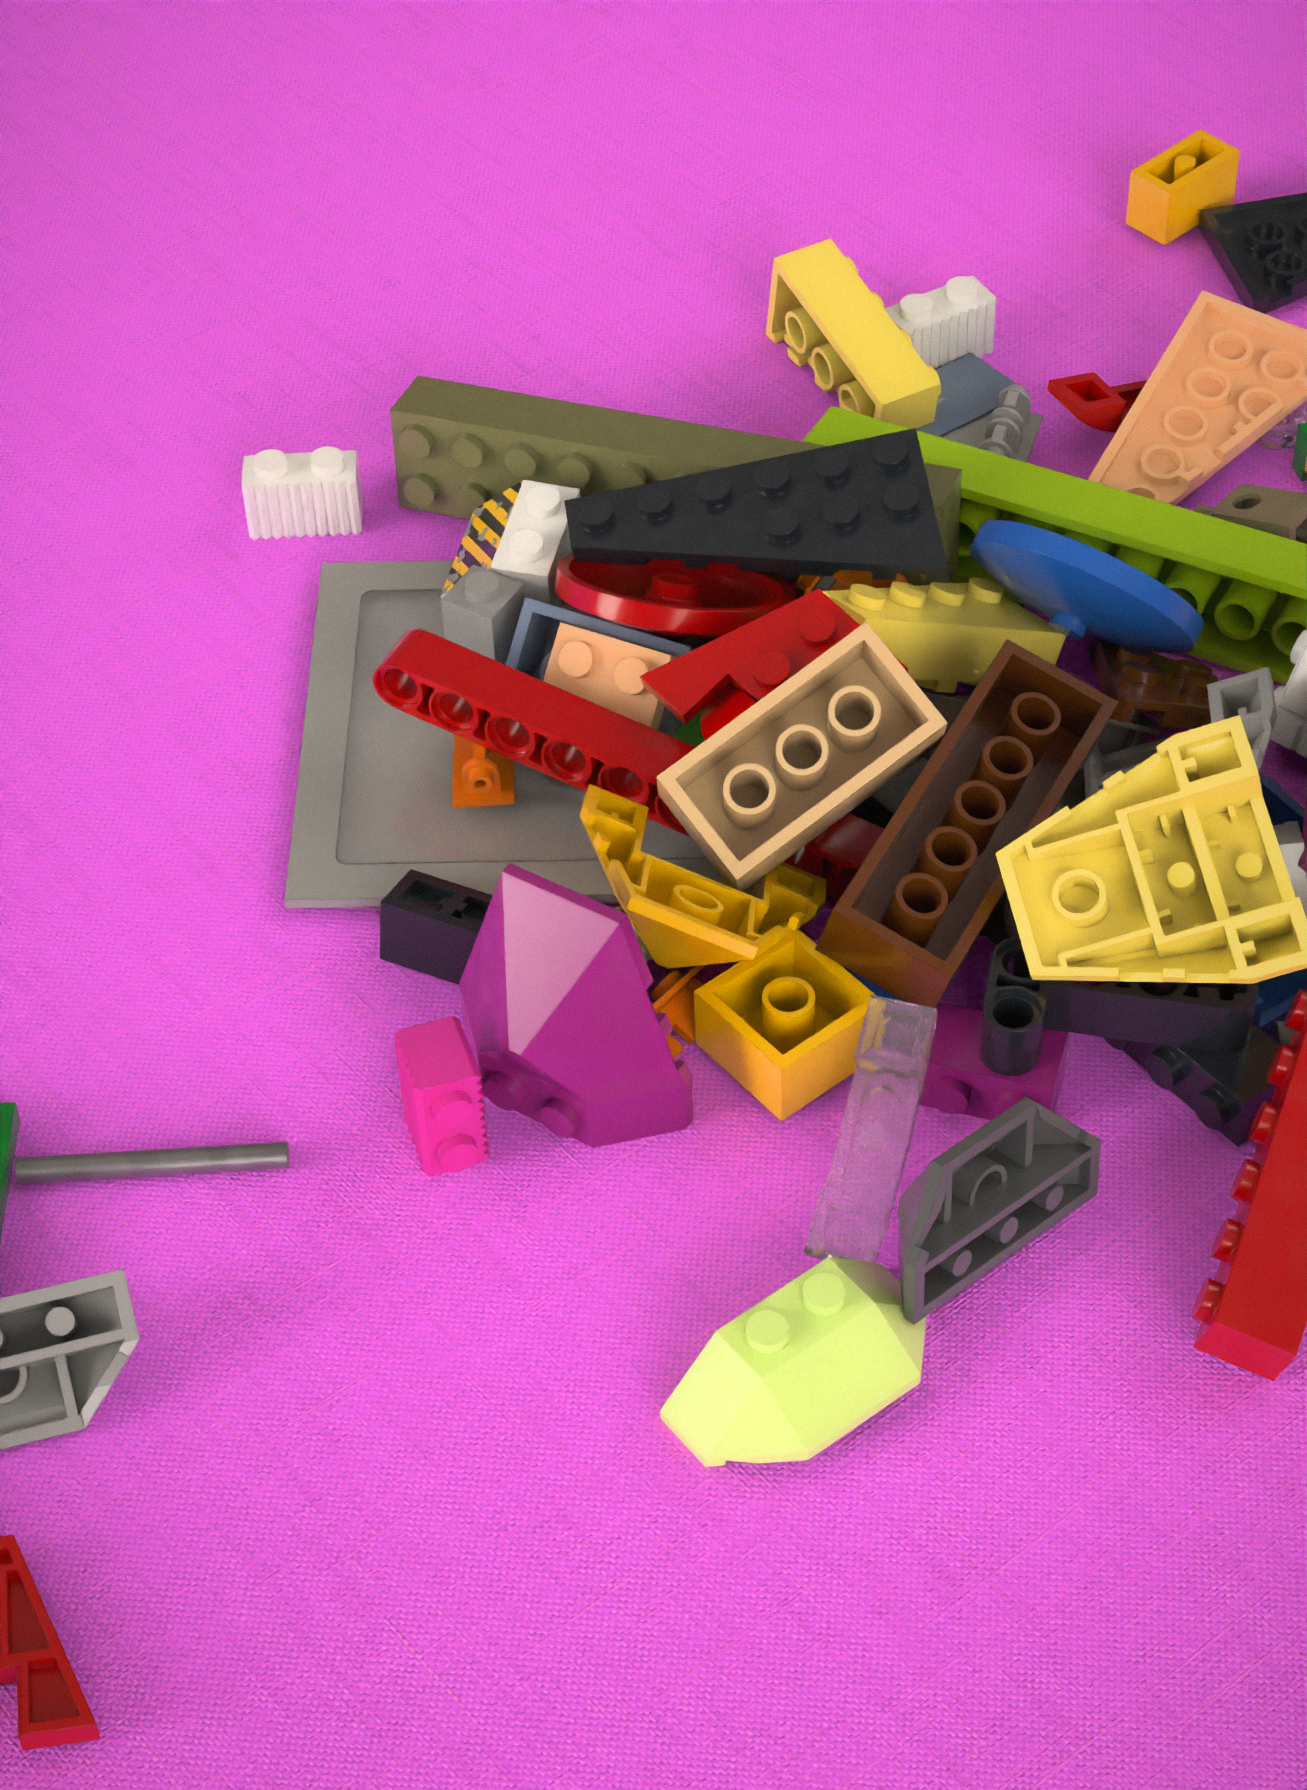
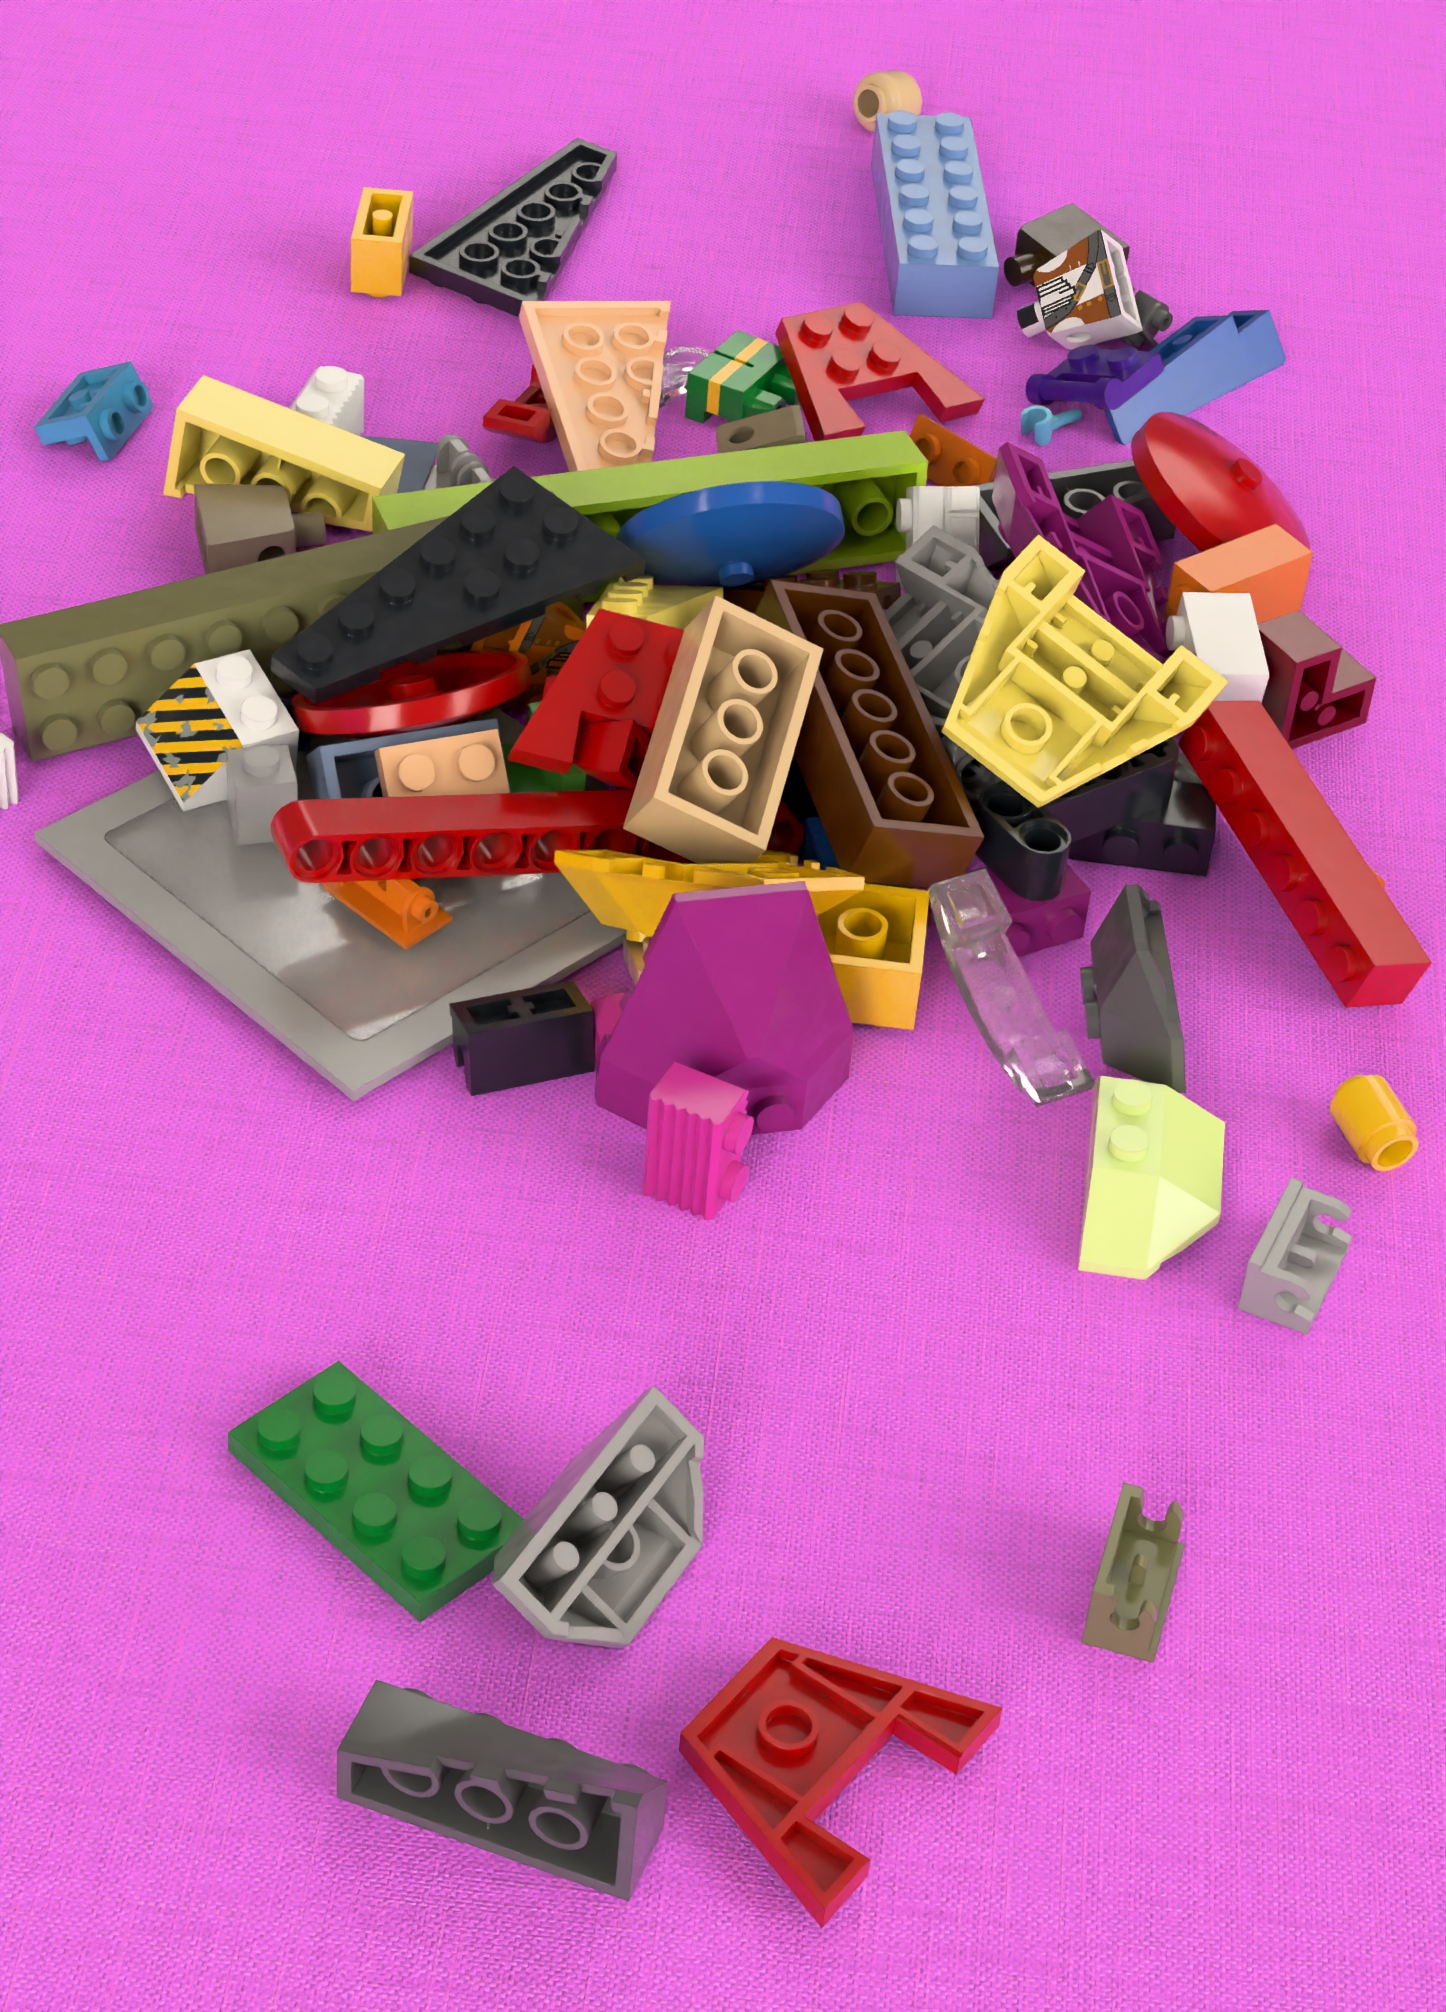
camera: 50 degrees left, 5 degrees down
(152, 1162) = (499, 1338): flat silver bar -> none
(339, 1700) = (1135, 1579): none -> olive hinge
(765, 391) = (250, 525): none -> dark tan torso
(780, 233) = (100, 407): none -> dark azure bracket
(834, 1537) = (1296, 1259): none -> light grey hinge
(1070, 1468) = (1374, 1122): none -> yellow brick

